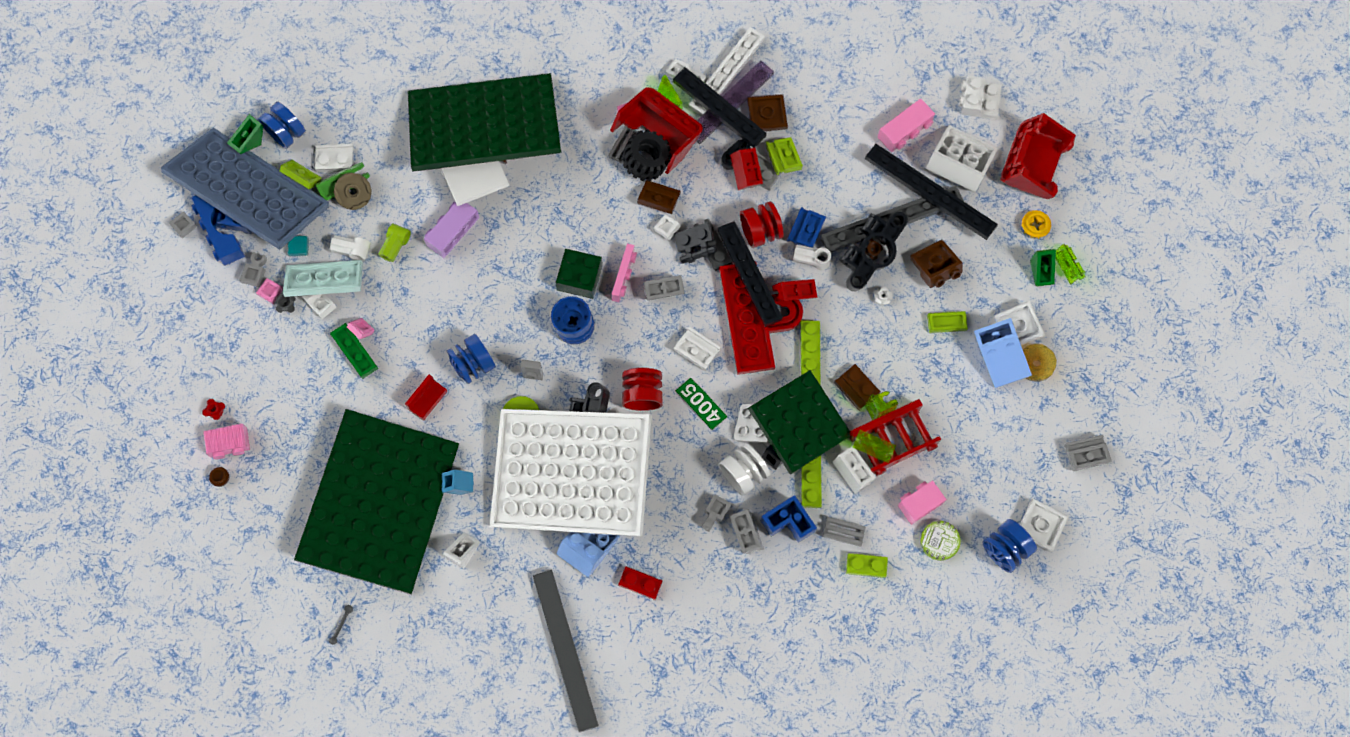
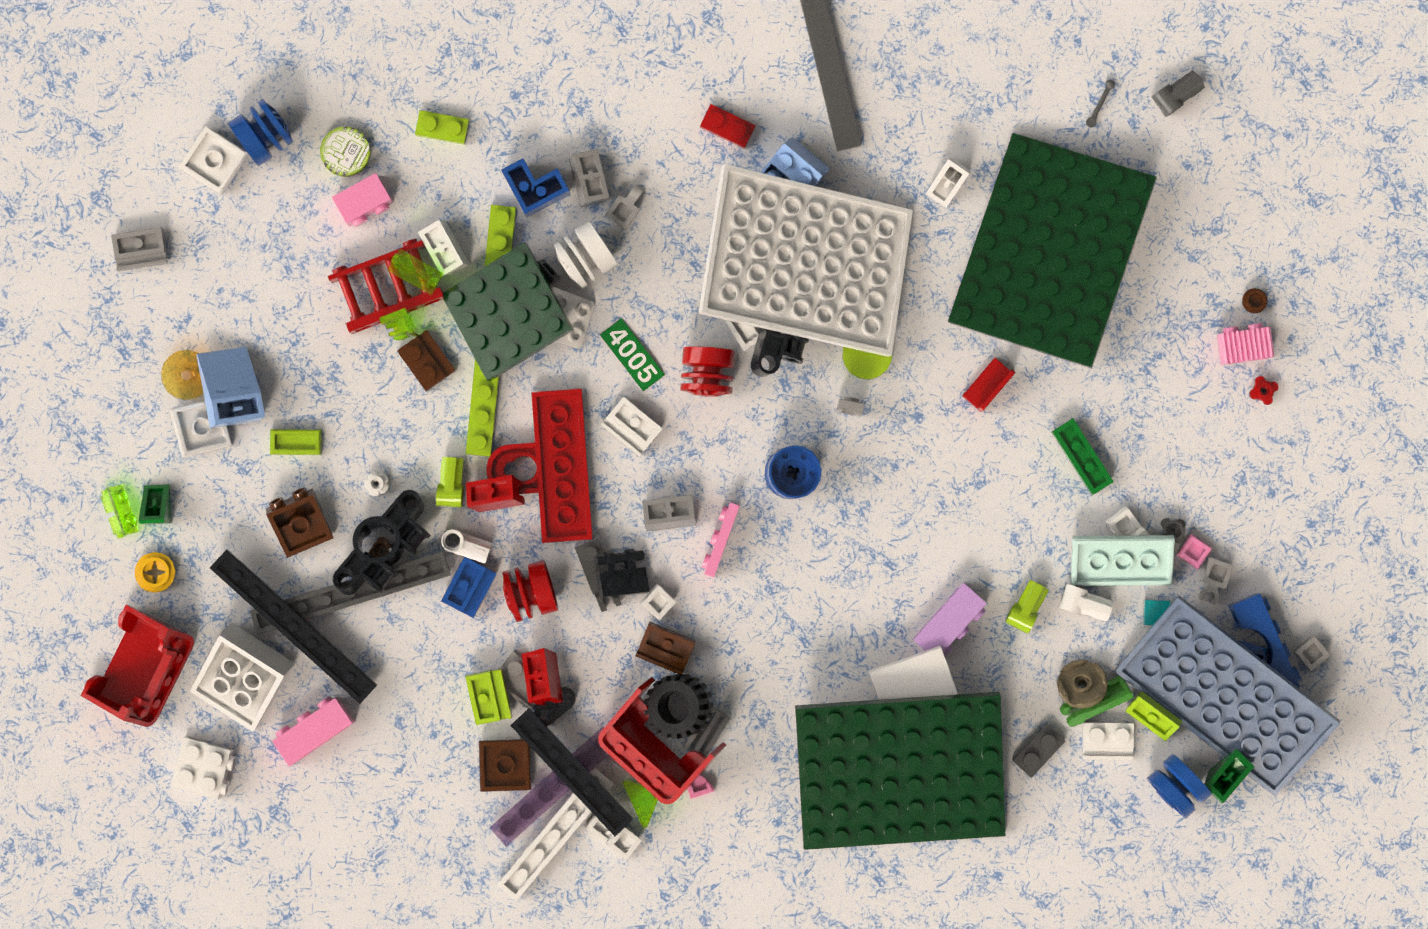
camera: 175 degrees left, 15 degrees up
(282, 632) = (1173, 96): none -> dark grey piece
(360, 328) = (1073, 486): bright pink tile -> none
(384, 148) = (1038, 750): none -> dark grey plate
(457, 482) = (945, 266): dark azure brick -> none
(471, 358) = (928, 428): blue wheel -> none
(579, 273) = (781, 541): dark green brick -> none
(749, 274) = (553, 521): black plate -> none
(828, 297) = (450, 488): none -> lime piece
(845, 524) = (445, 165): light grey tile -> none

